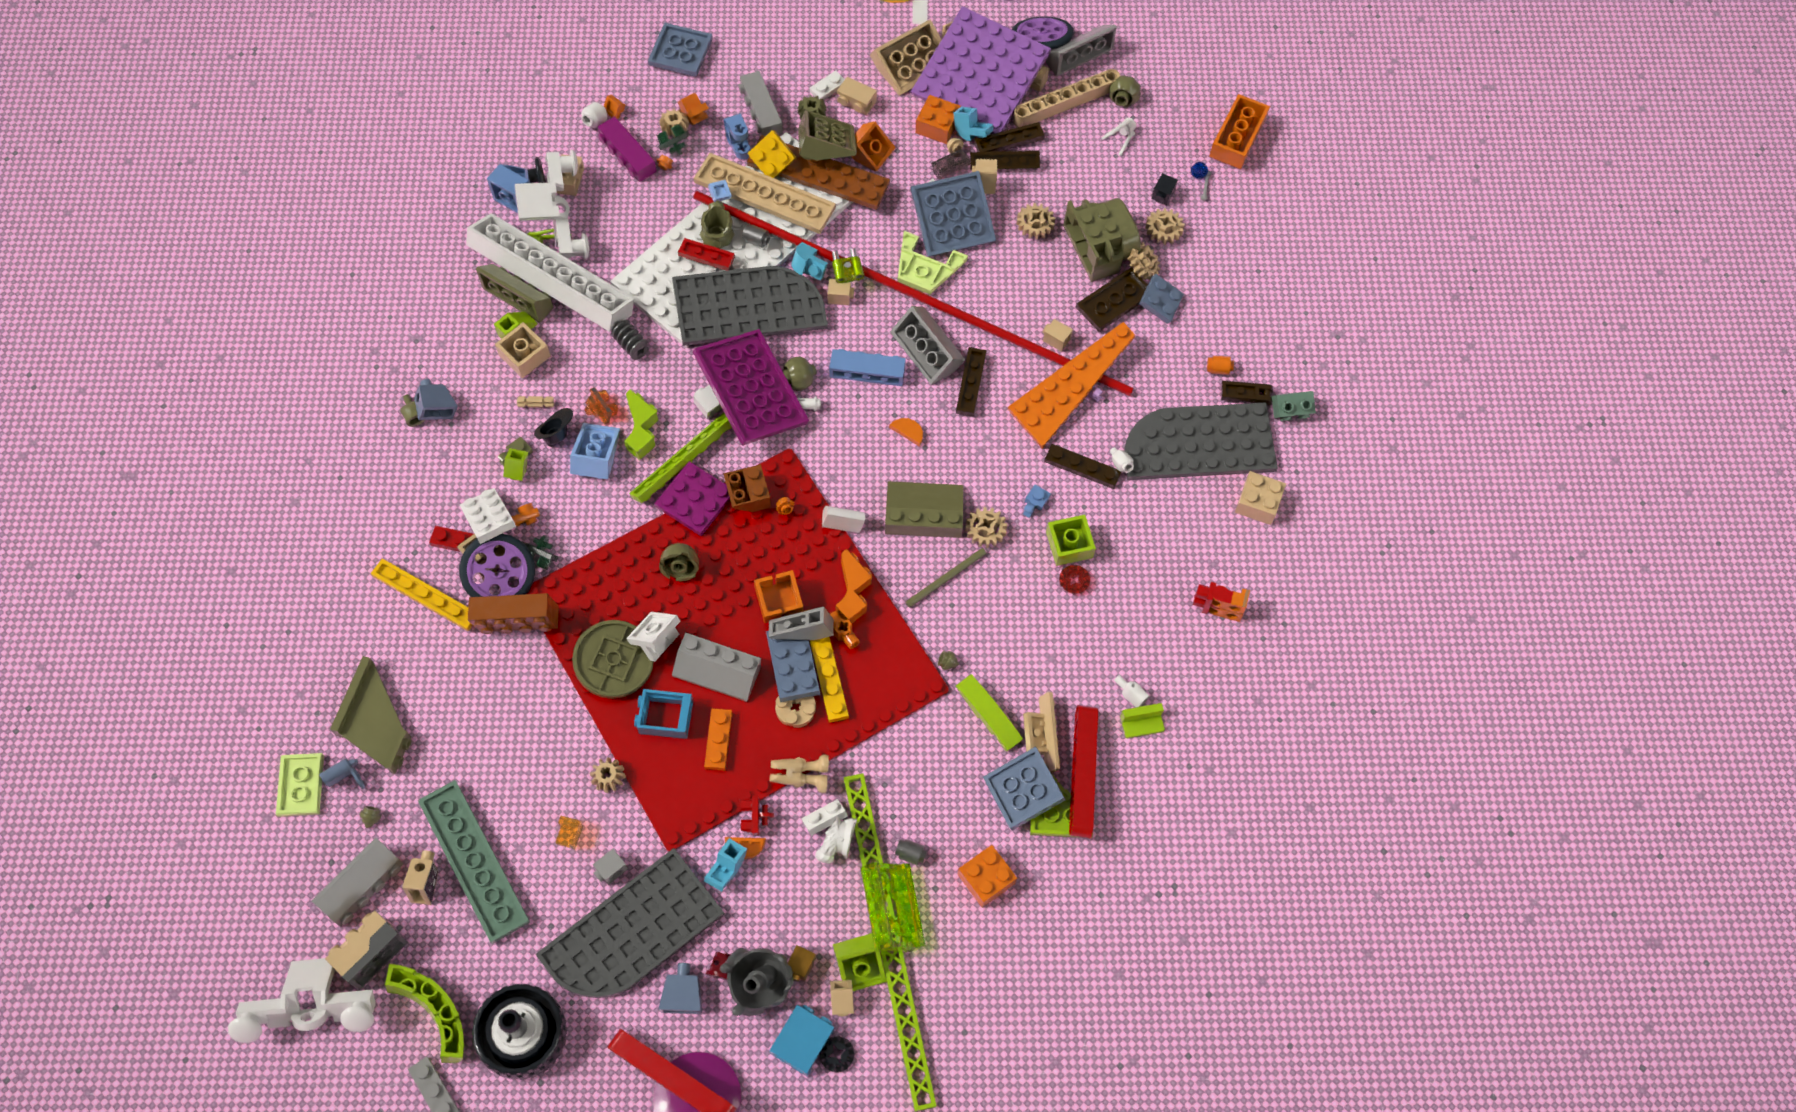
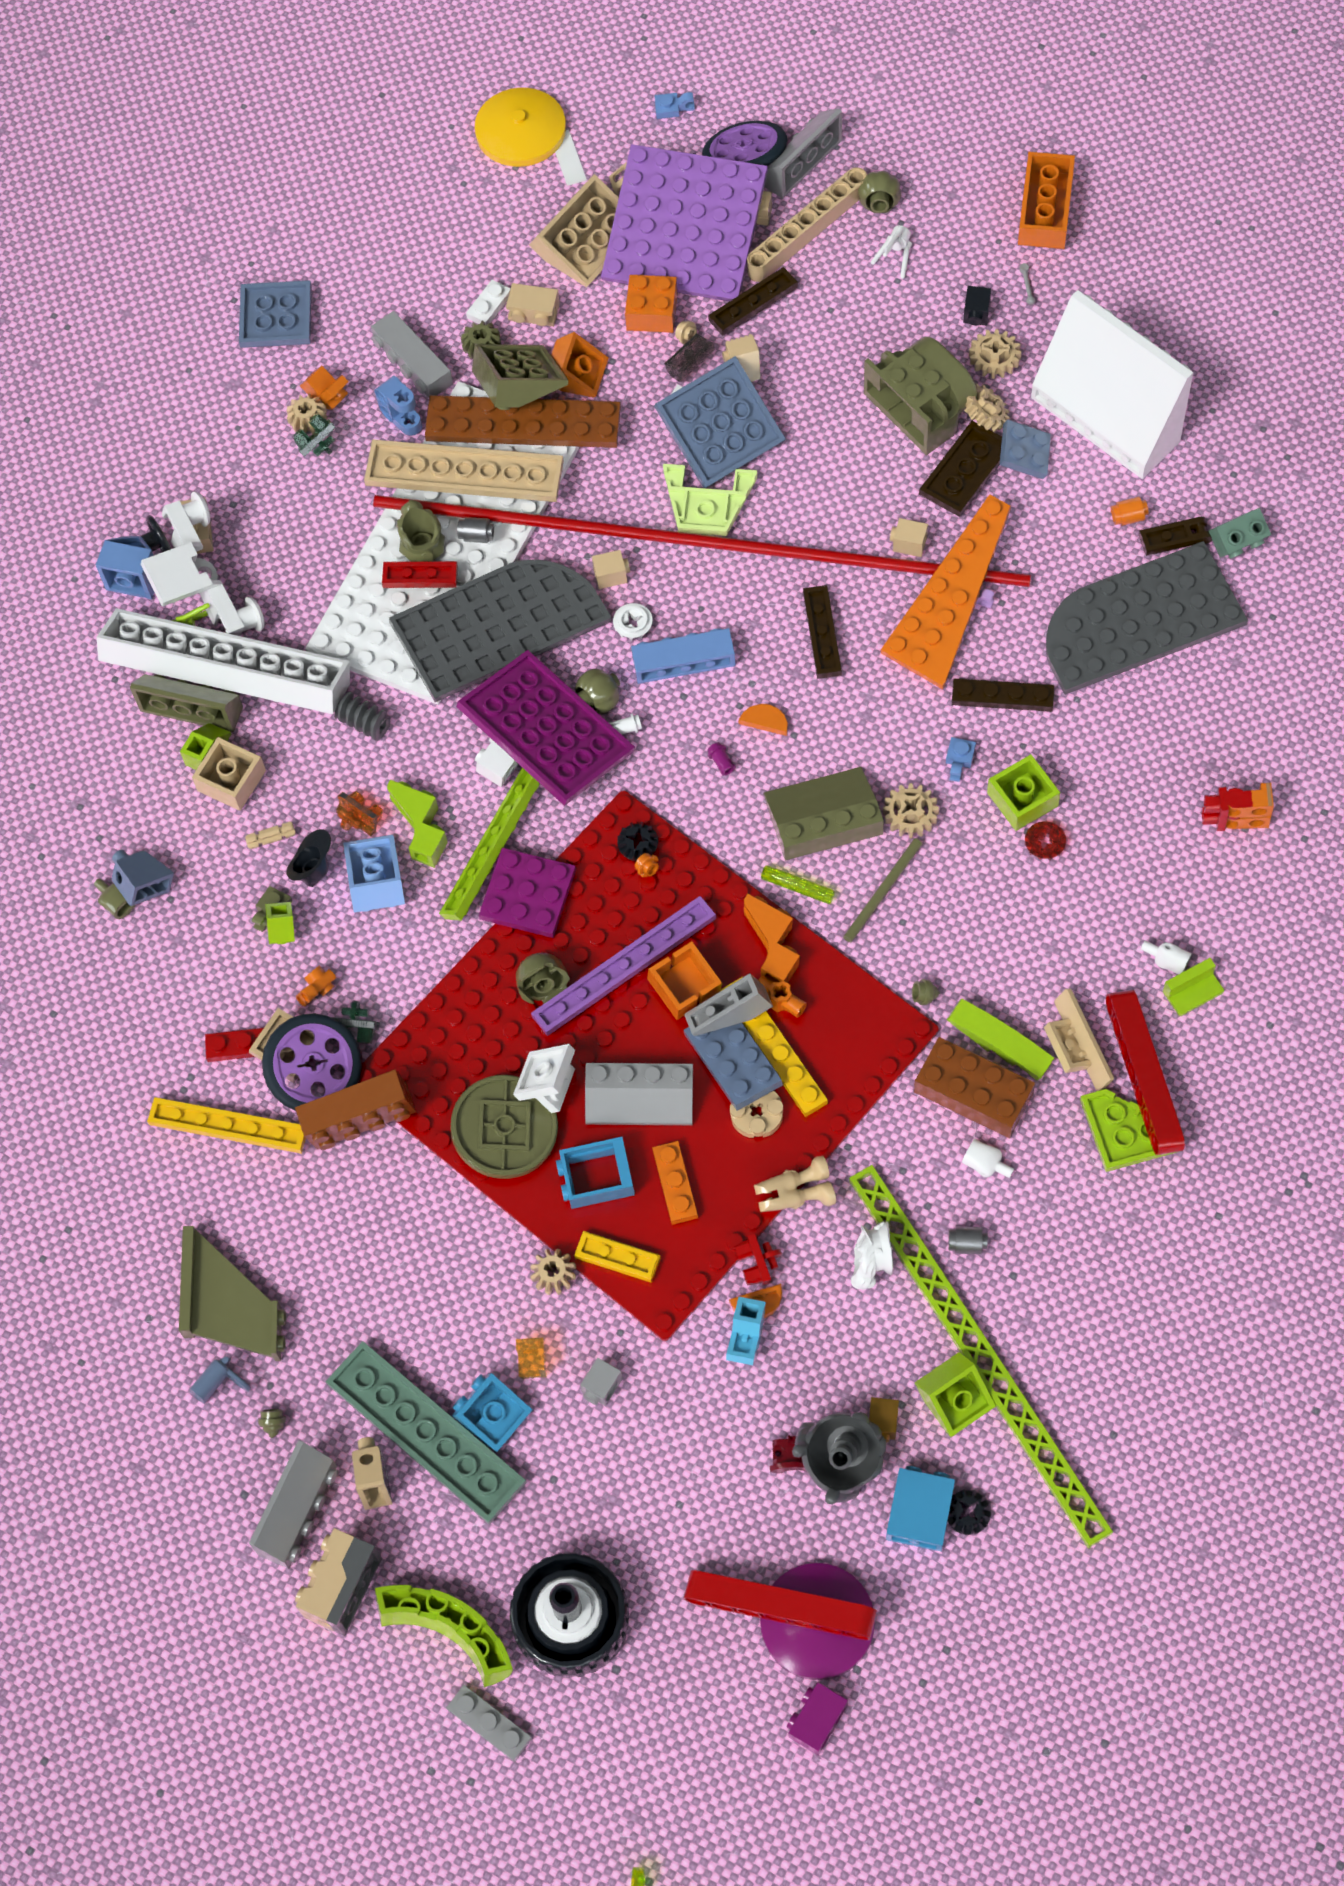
camera: 10 degrees left, 0 degrees up
(299, 785) = (164, 1413): yellowish green tile -> none
(350, 1008) = (347, 1656): white piece -> none
(487, 515) = (272, 998): white plate -> none
(524, 861) = (491, 1411): none -> dark azure plate
(594, 115) = (196, 436): white head -> none
(613, 106) = (217, 418): orange tile -> none
(627, 149) = (258, 469): magenta brick -> none
(632, 931) = (659, 1450): dark grey plate -> none
(657, 779) = (617, 1256): none -> yellow tile
(664, 162) = (314, 470): orange plate -> none
(681, 992) = (751, 1503): sand blue torso -> none
(719, 191) = (407, 486): light blue plate -> none
(741, 572) = (623, 966): none -> medium lavender plate
(748, 489) = (593, 858): dark orange slope -> none
(771, 155) = (457, 418): yellow plate -> none
(794, 484) = (626, 845): none -> black gear
(807, 262) = (553, 545): medium azure brick -> none
(824, 817) = (844, 1234): white plate -> none
(841, 997) = (950, 1442): tan brick -> none
(843, 519) = (727, 858): white brick -> none
(848, 268) = (612, 535): clear neon green piece -> none
(848, 328) = (638, 613): none -> white gear
(866, 446) = (718, 754): none -> magenta pin
(887, 554) = (797, 884): none -> clear neon green axle
(907, 920) = (997, 1336): clear neon green fence -> none
(927, 344) = (748, 602): light grey slope -> none
(946, 797) = (986, 1160): none -> white piece
(957, 741) = (974, 1087): none -> dark orange brick
(968, 126) = (693, 299): medium azure brick -> none
(987, 876) = (1072, 1238): orange brick -> none
(1009, 159) = (761, 328): dark brown plate -> none
(1023, 788) = (1079, 1117): sand blue plate -> none
(1036, 221) = (828, 397): tan gear -> none
(1122, 460) = (1050, 671): white plant -> none
(1199, 170) = (1012, 262): clear blue plate -> none
(1238, 272) = (1113, 386): none -> white slope
(1260, 498) = (1240, 664): tan brick -> none

